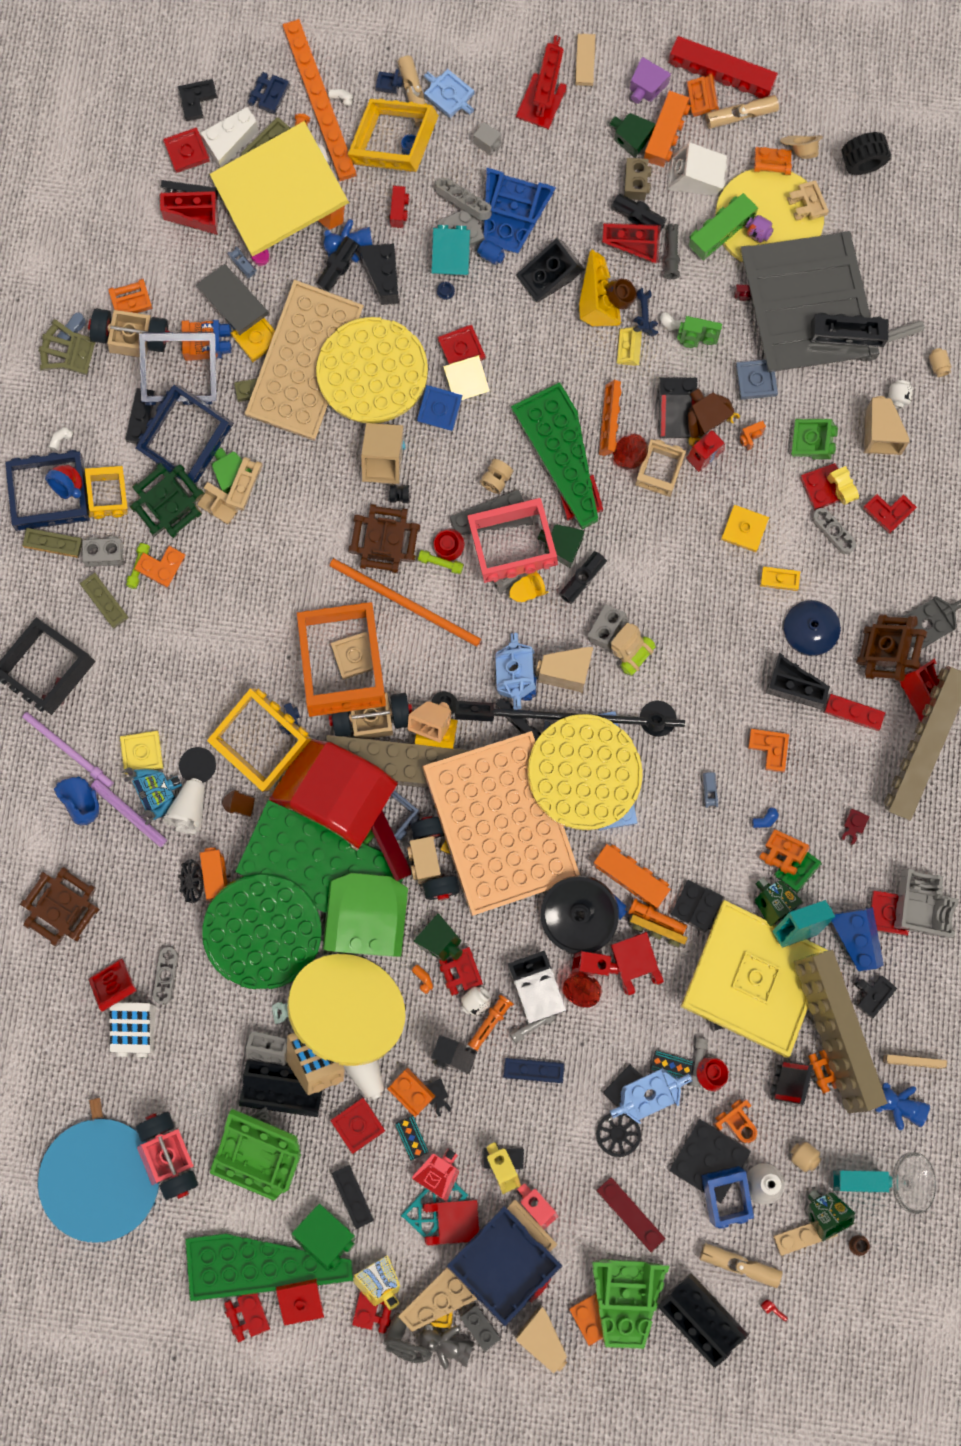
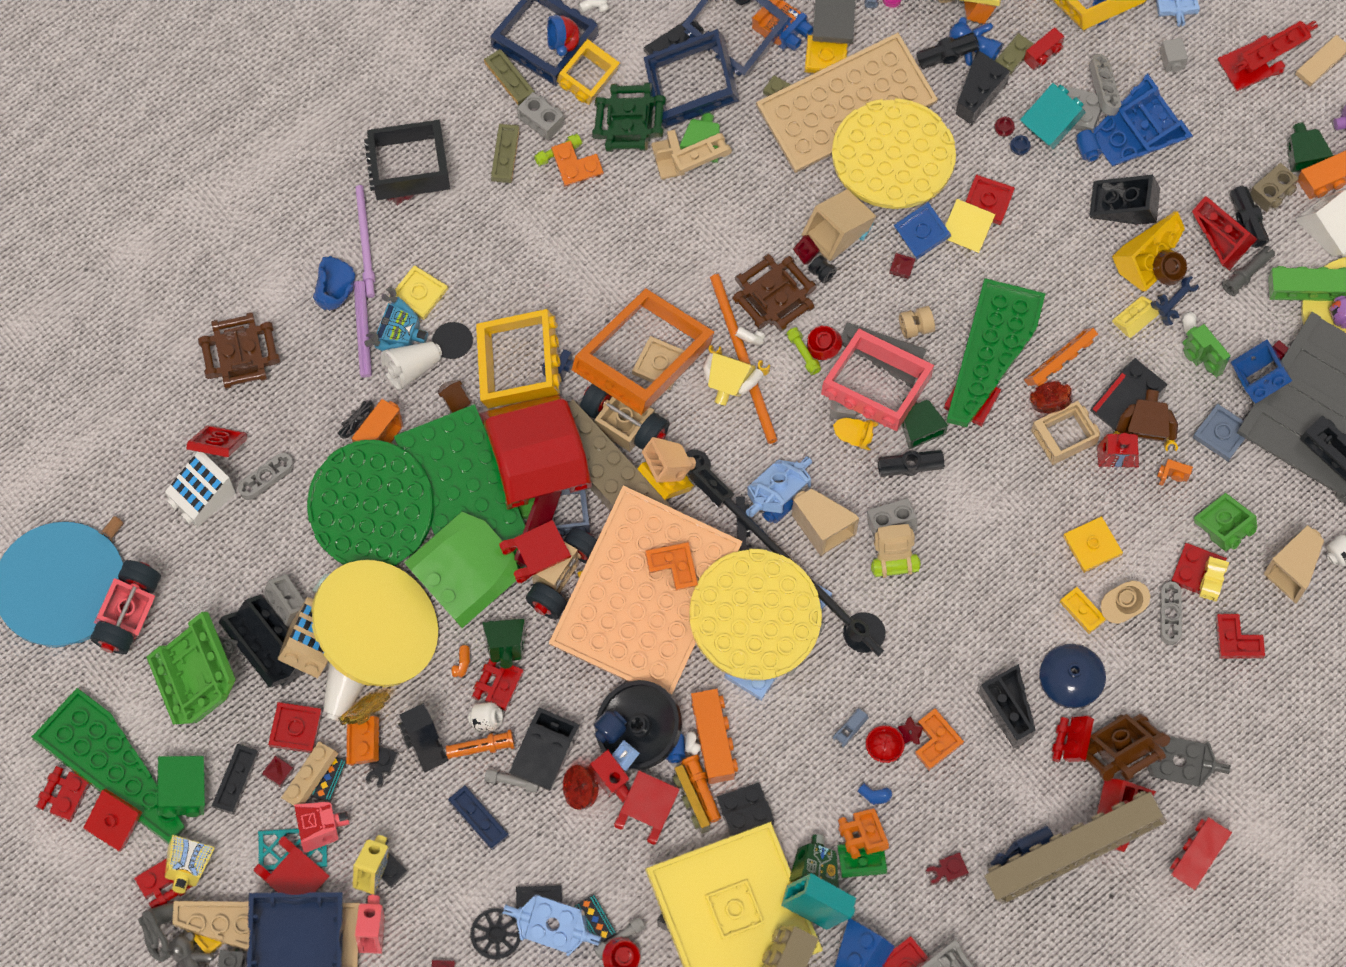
camera: 45 degrees right, 10 degrees down
(374, 1164) = (277, 771): none -> dark red tile
(375, 489) = (806, 249): none -> dark red tile
(380, 226) = (1014, 53): none -> olive plate
(393, 1071) = (363, 708): none -> clear yellow plate
(398, 584) = (756, 339): none -> white arm
(399, 1148) = (309, 775): none -> tan plate
(408, 858) = (539, 549): none -> red flag
(410, 623) = (730, 375): none -> light yellow torso
(423, 286) = (1004, 126): none -> dark red plate
(448, 444) = (902, 266): none -> dark red tile
(505, 783) = (676, 558): none -> orange plate
(563, 933) = (609, 727): none -> dark blue head
(592, 943) = (625, 755): none -> light blue tile
(621, 892) = (690, 744): none -> white arm
(731, 318) = (1264, 355): none -> blue window
(742, 781) = (885, 744): none -> red hat
(753, 753) = (914, 727): none -> dark red plate
(802, 549) = (1125, 601): none -> tan piece
(854, 712) = (1041, 777): red plate -> none
(857, 667) = (1077, 740): none -> red plate
(888, 766) = (1023, 844): none -> dark blue wheel

